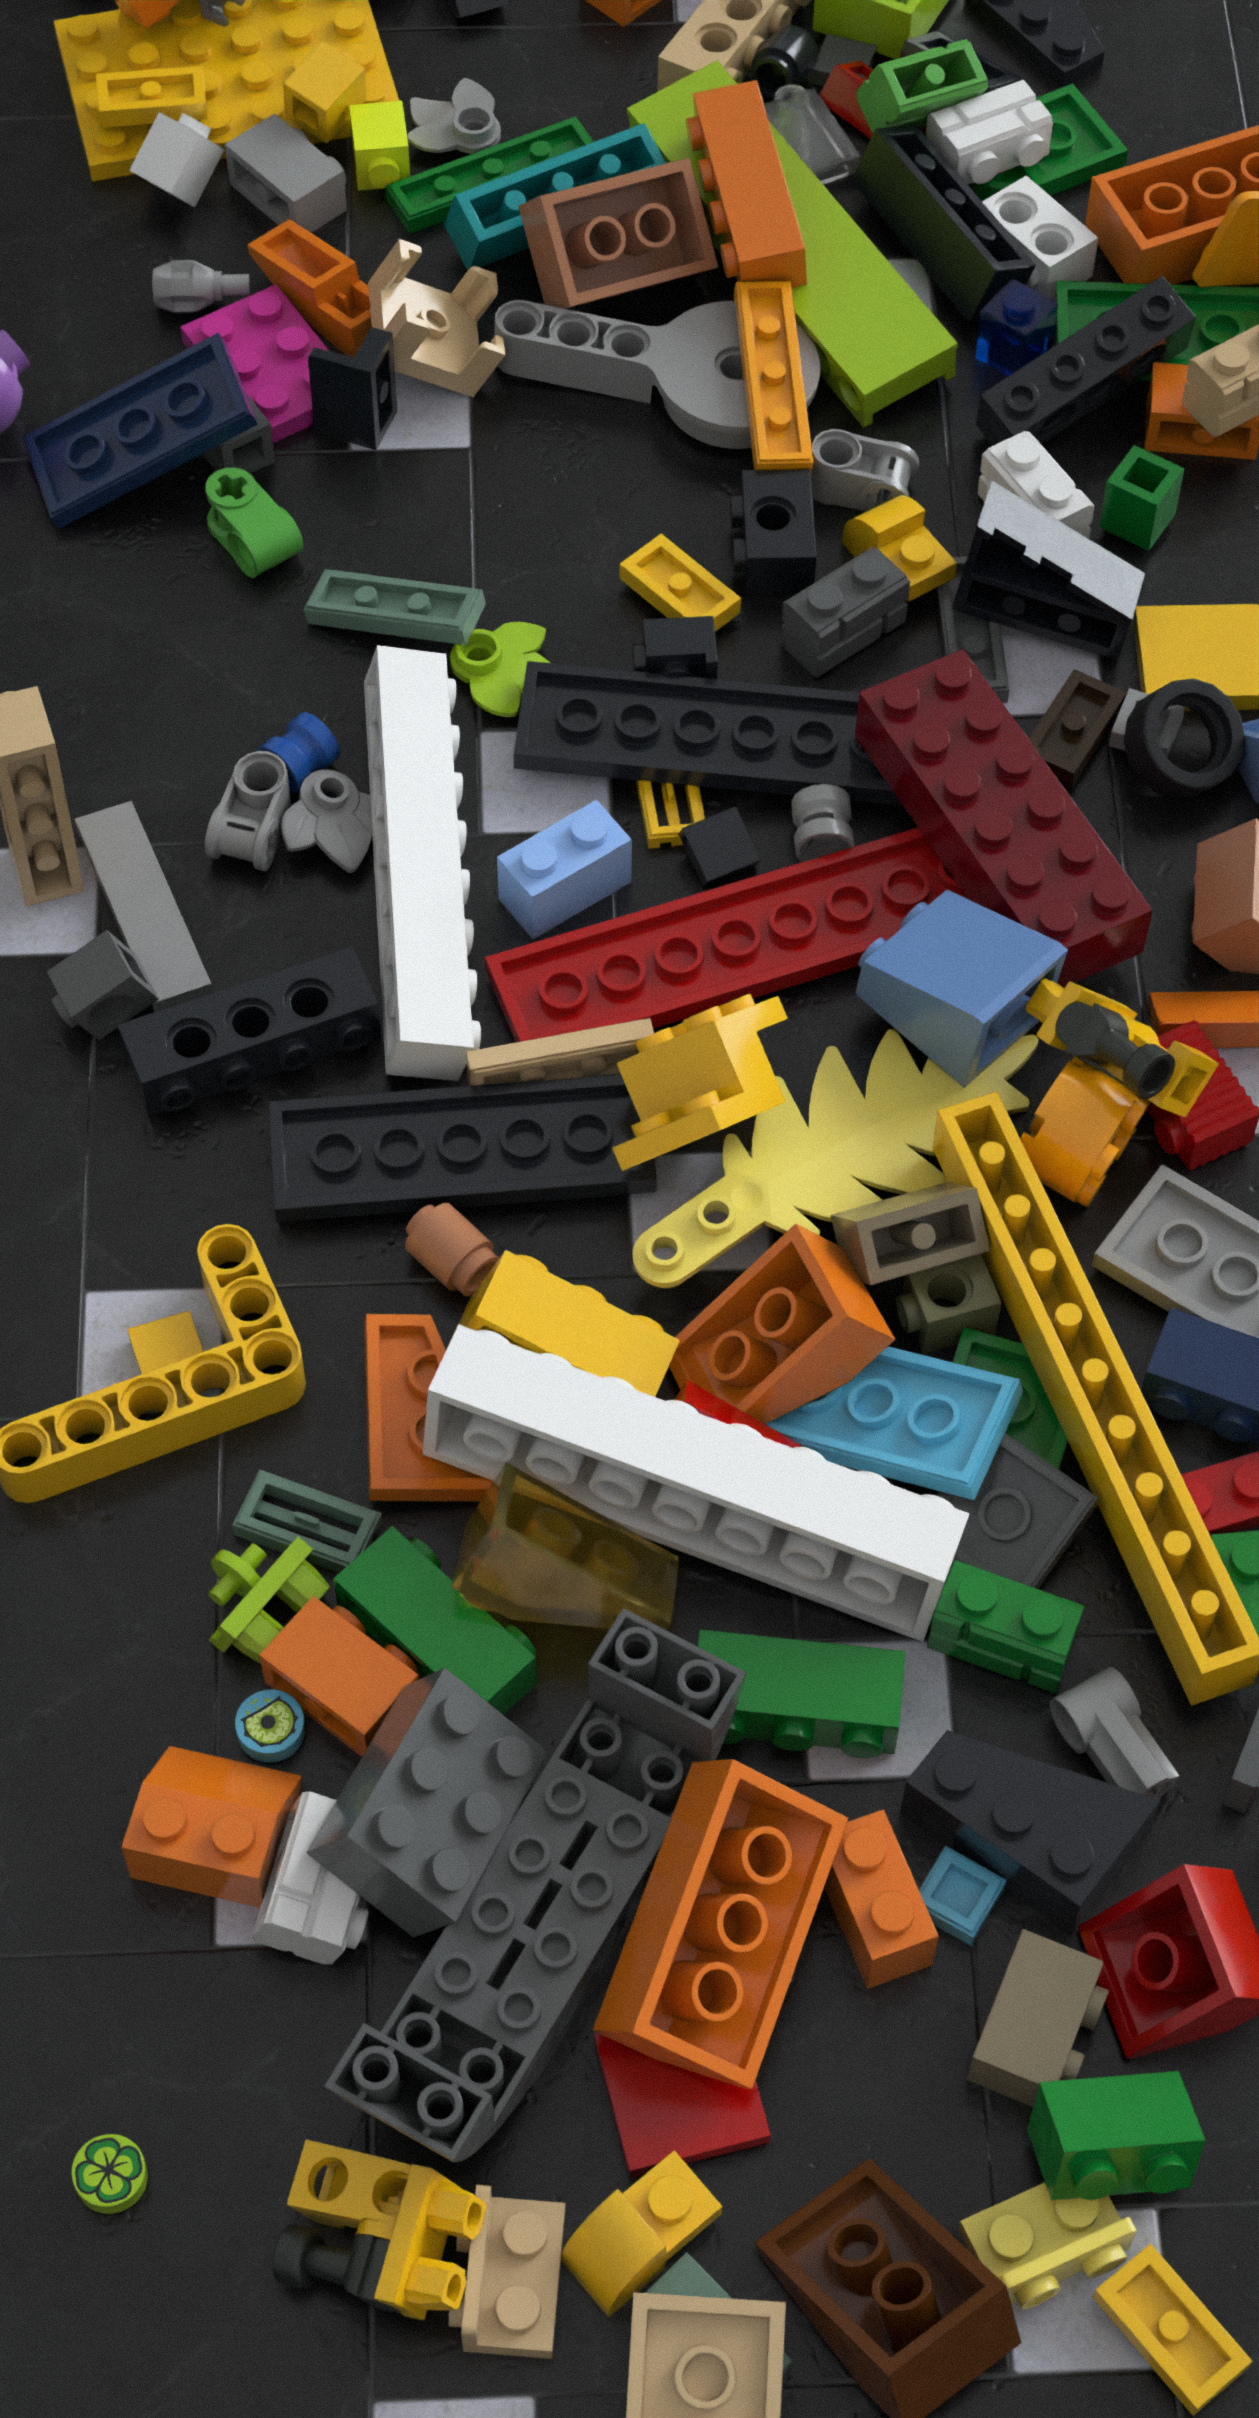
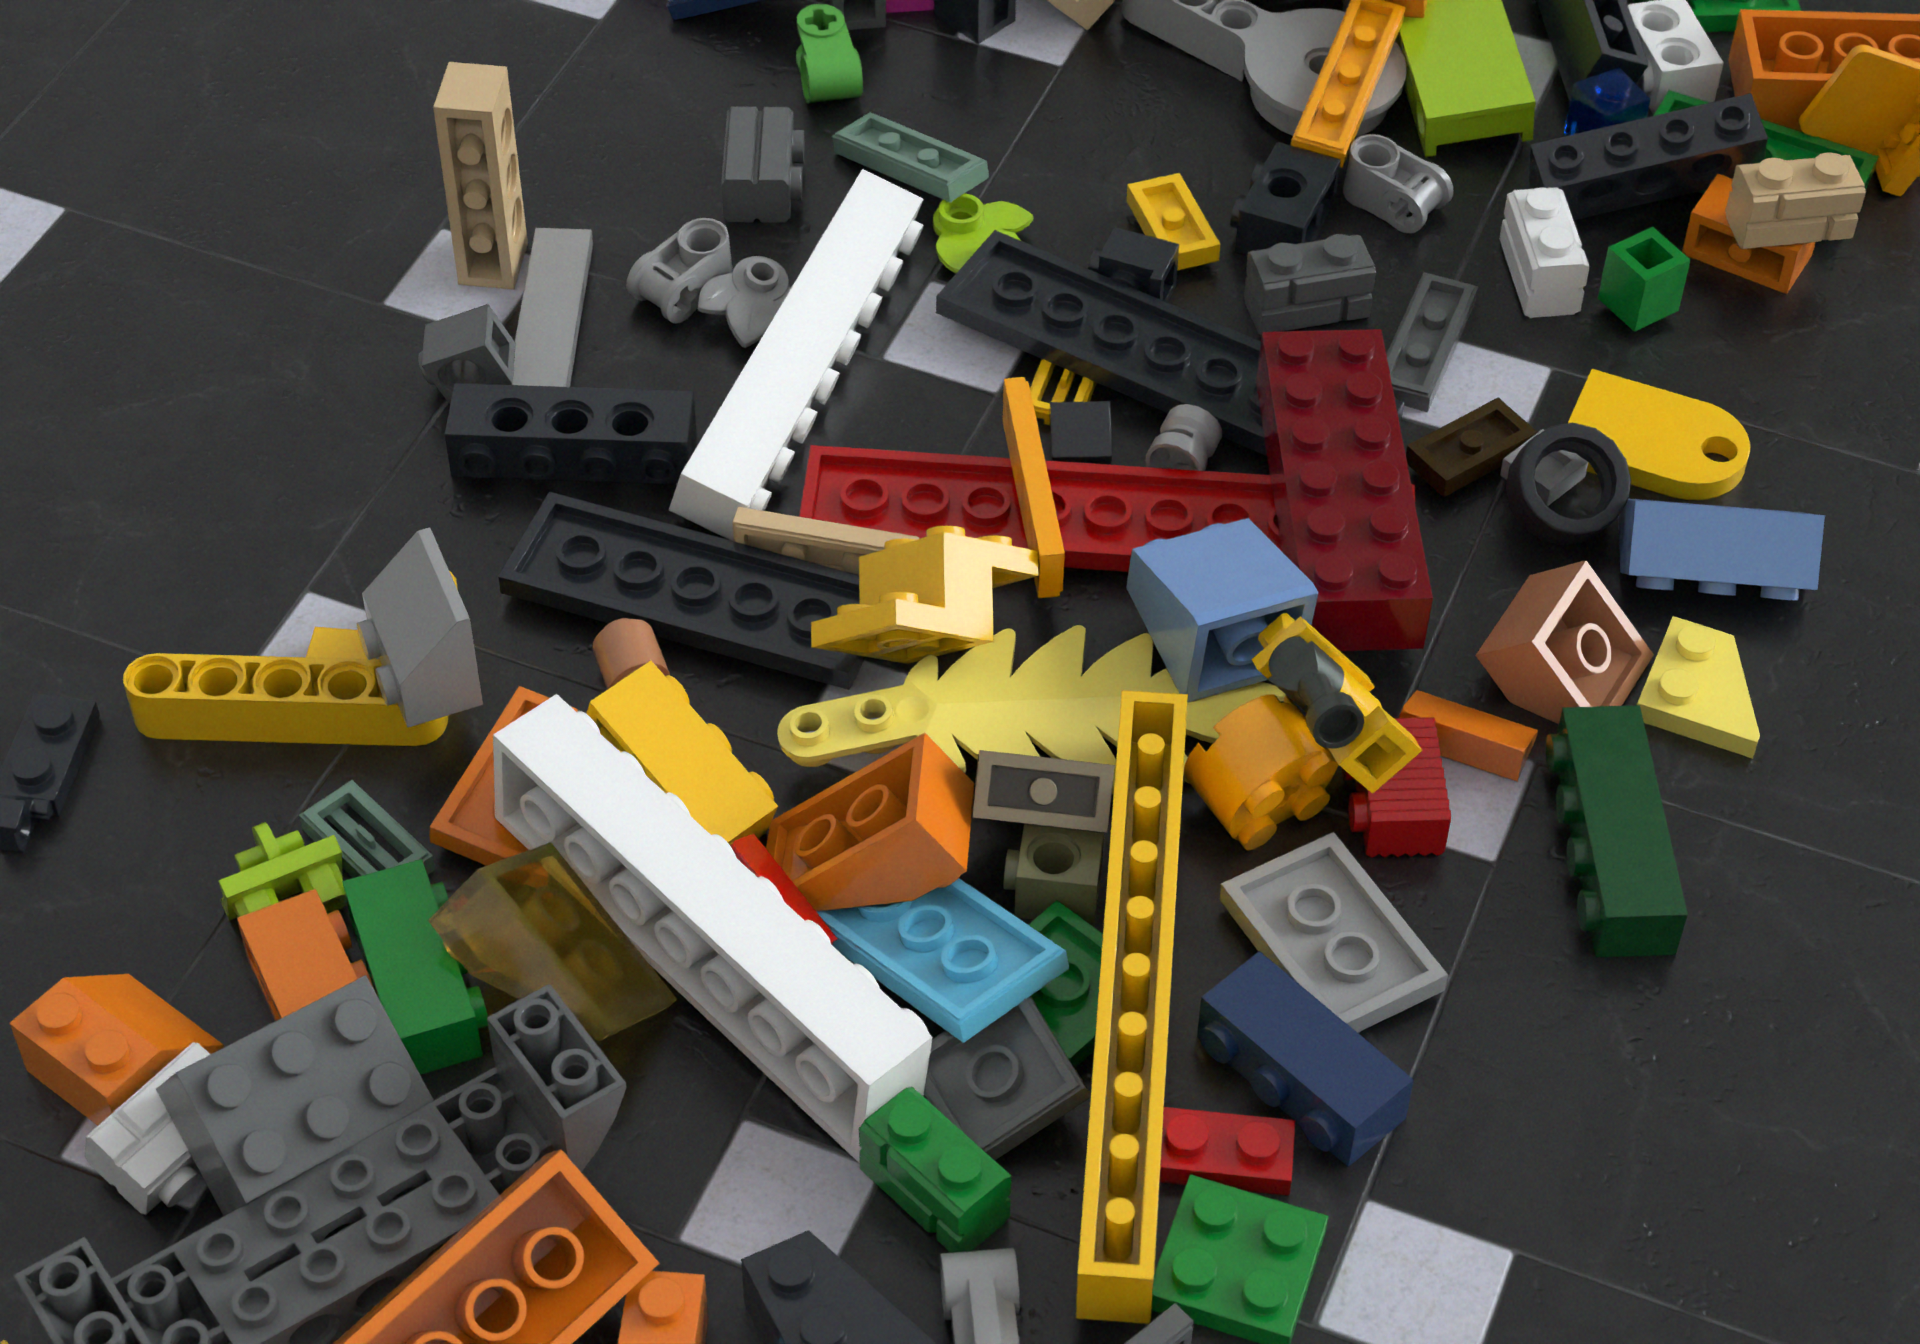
camera: 25 degrees right, 10 degrees down
(255, 667) = (759, 164): none -> dark grey brick
(270, 1725) = (223, 992): tile -> none
(275, 1307) = (420, 635): none -> light grey slope
(304, 748) = (758, 235): blue wheel -> none
(564, 869) = (926, 400): light blue brick -> none
(723, 922) = (1033, 486): none -> light orange tile
(813, 1693) = (709, 1154): green brick -> none
(901, 536) = (1396, 250): yellow brick -> none
(1046, 578) = (1508, 308): black wedge -> none

